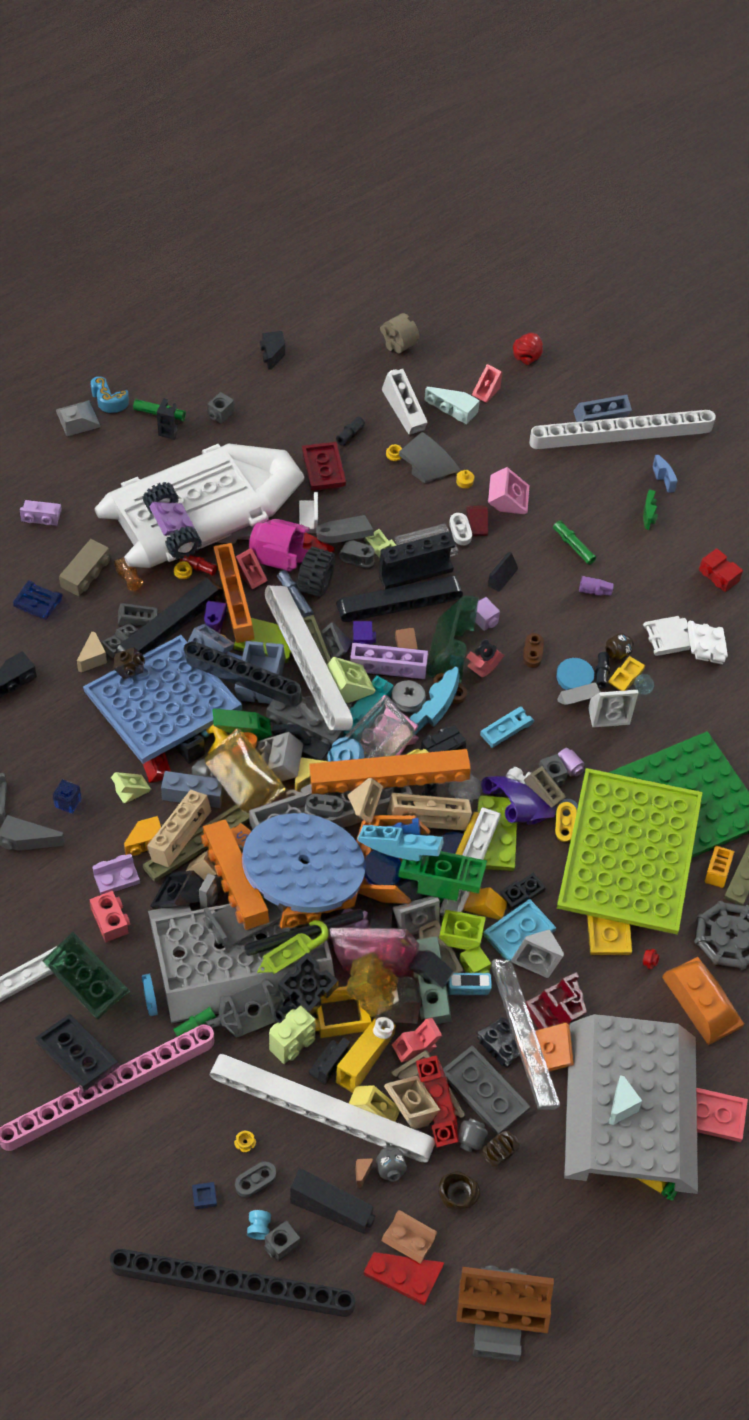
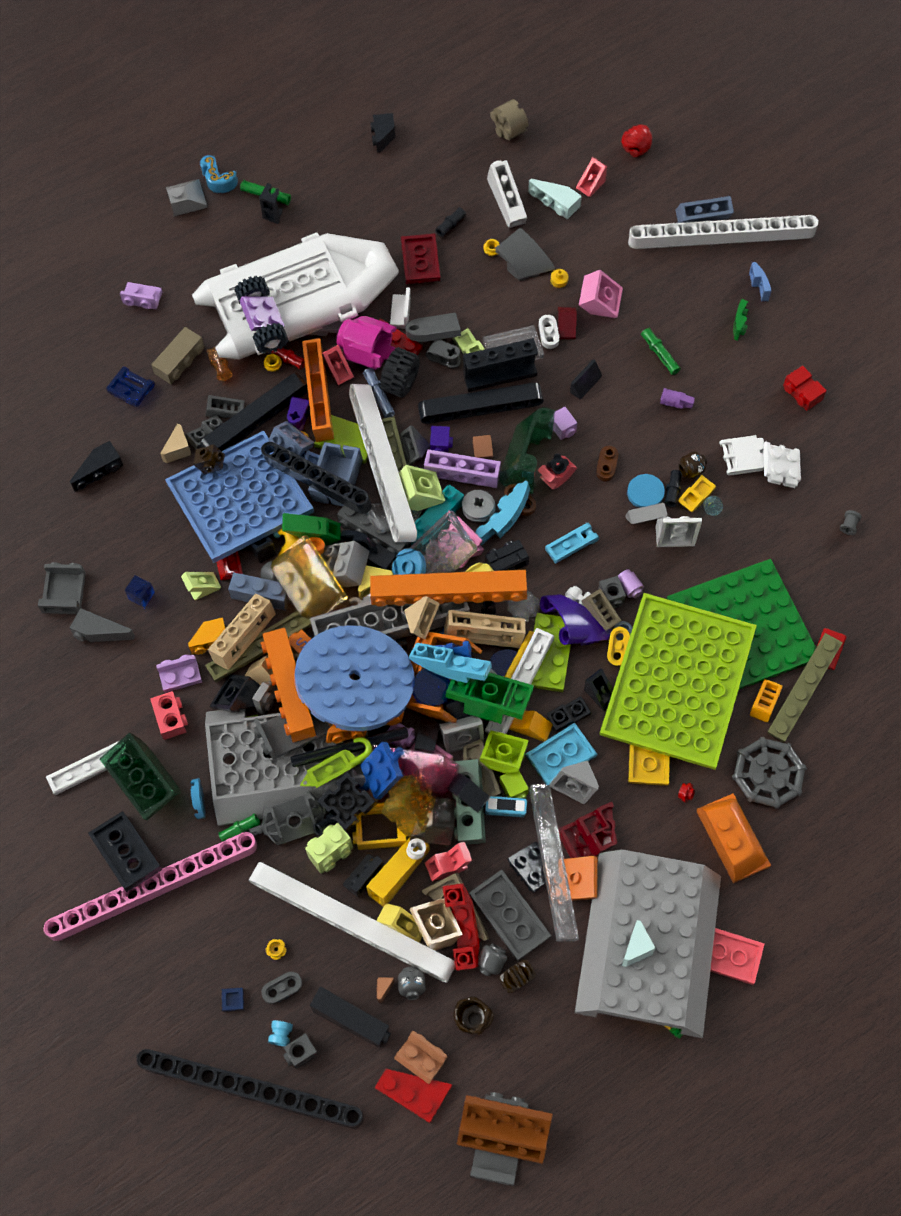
camera: 10 degrees right, 10 degrees up
(220, 407) = (325, 192): dark grey brick -> none
(324, 805) = (382, 613): dark grey beam -> none
(341, 949) = (381, 770): none -> blue plate
(551, 864) = (599, 689): none -> black slope

